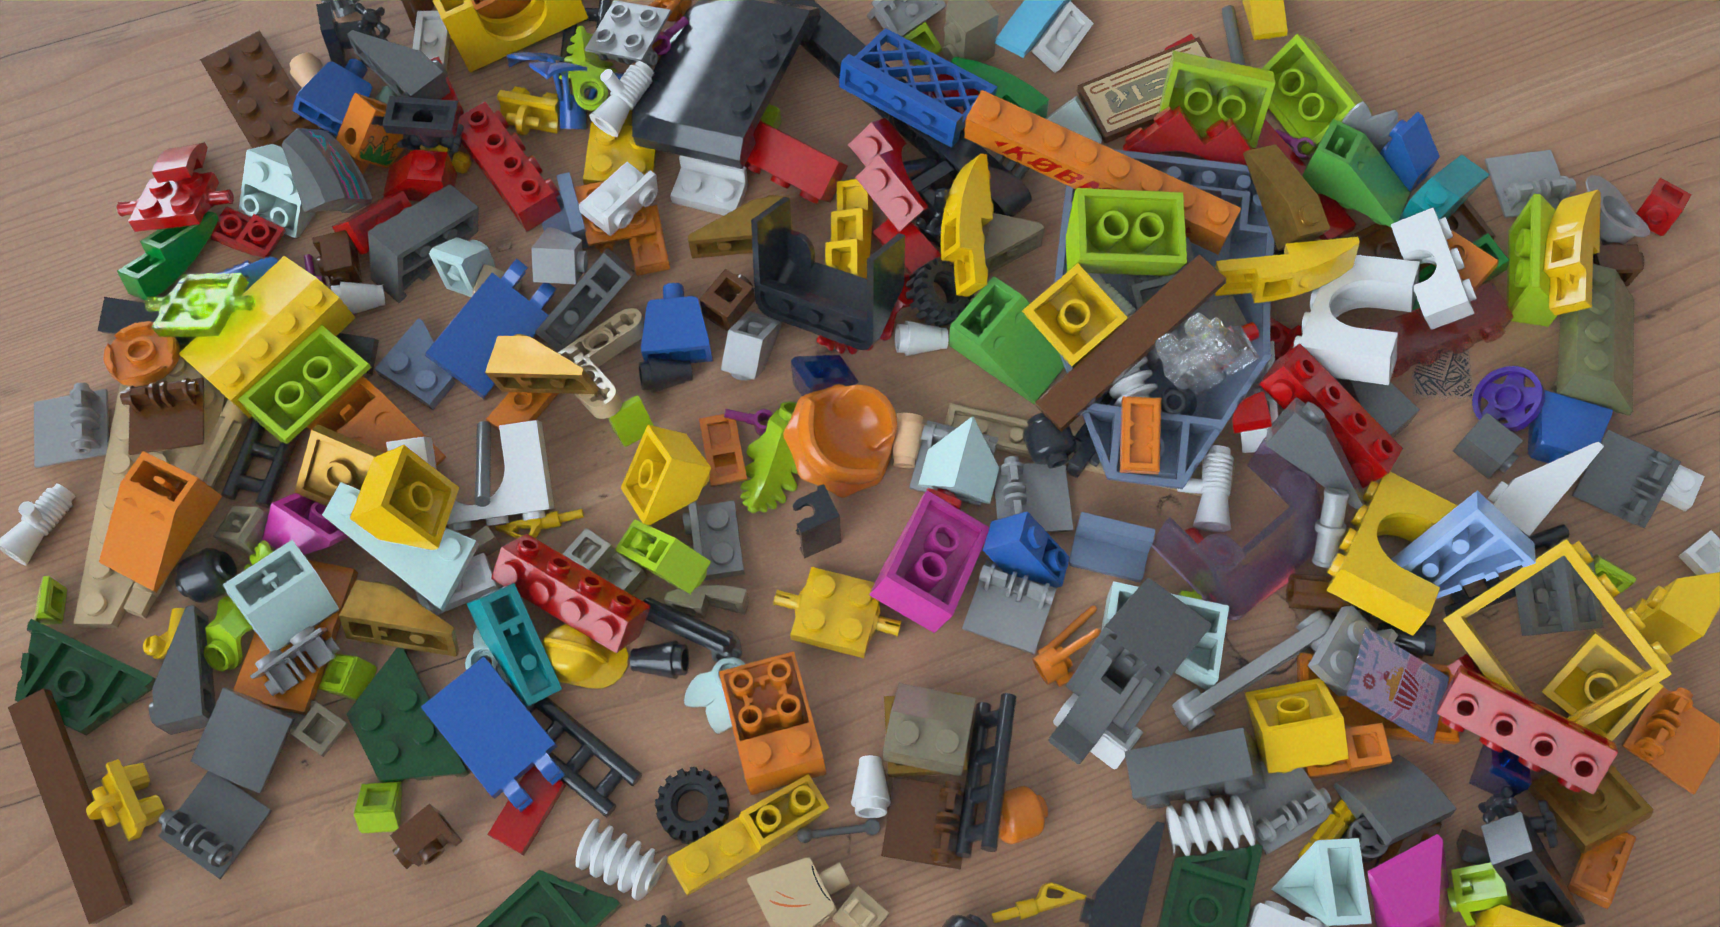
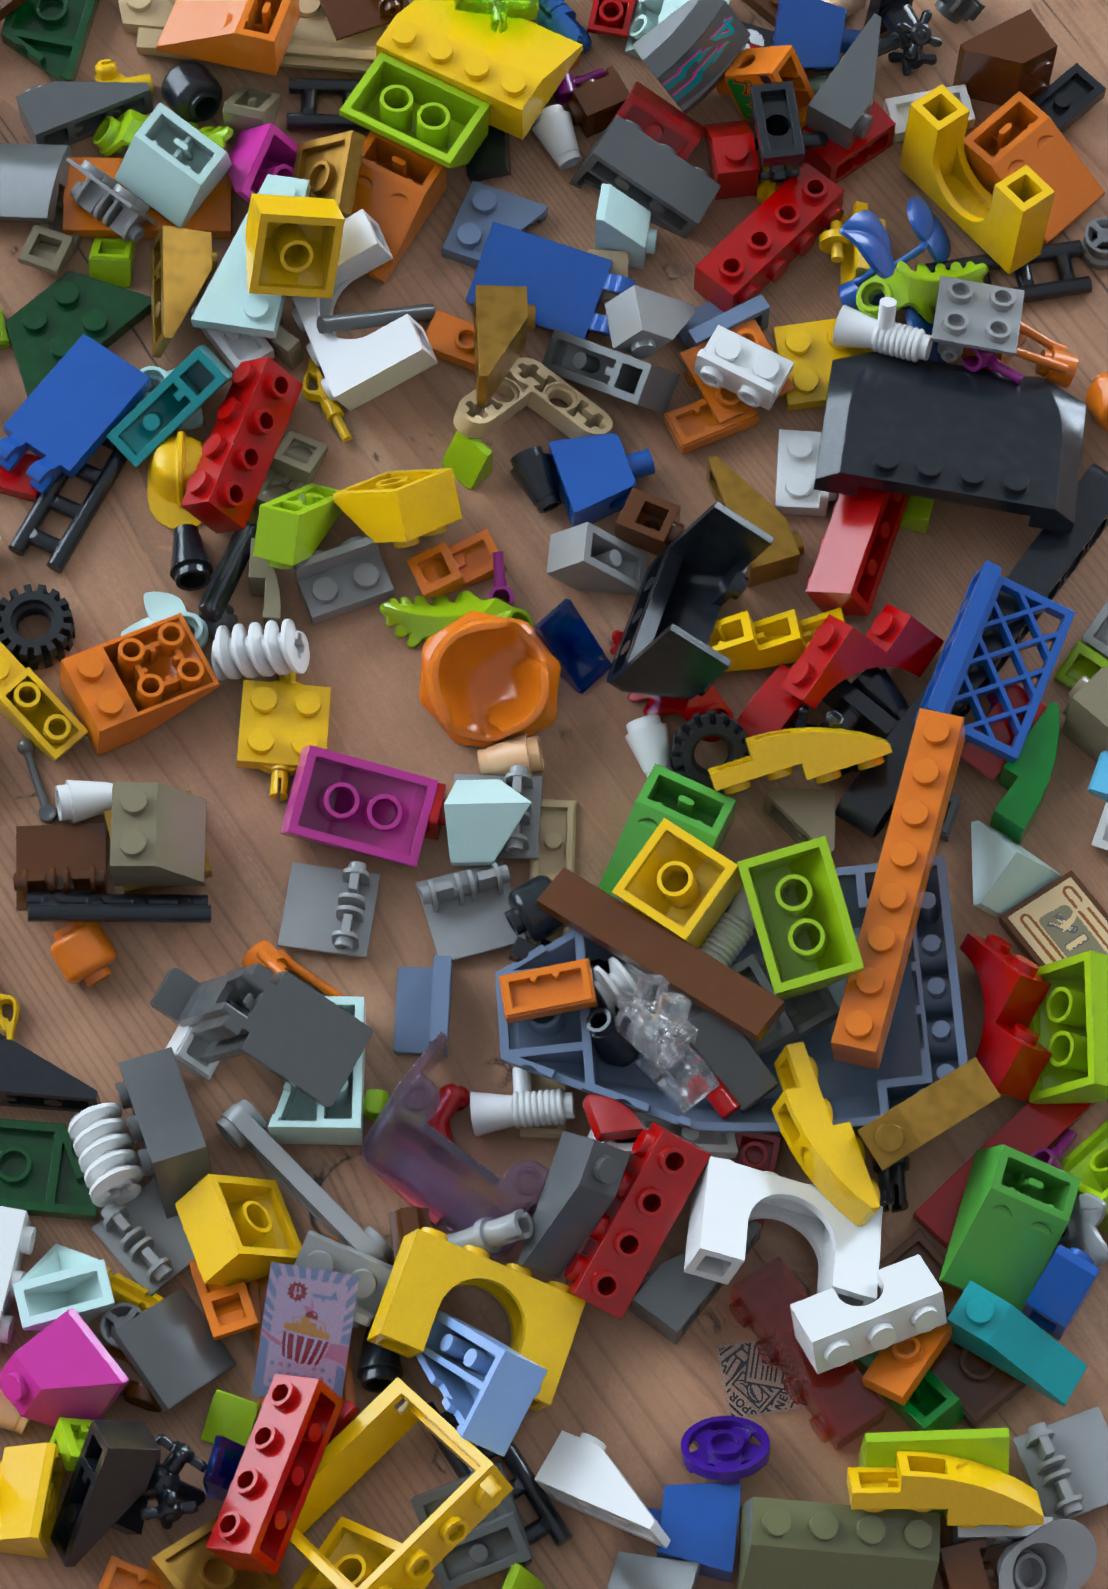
camera: 75 degrees right, 0 degrees up
(770, 613) = (259, 651): none -> white piece
(822, 528) = (378, 678): black hinge -> none
(1026, 548) = (393, 910): blue slope -> none
(1450, 767) = (230, 1418): none -> lime slope
(1489, 446) = (655, 1433): dark grey brick -> none

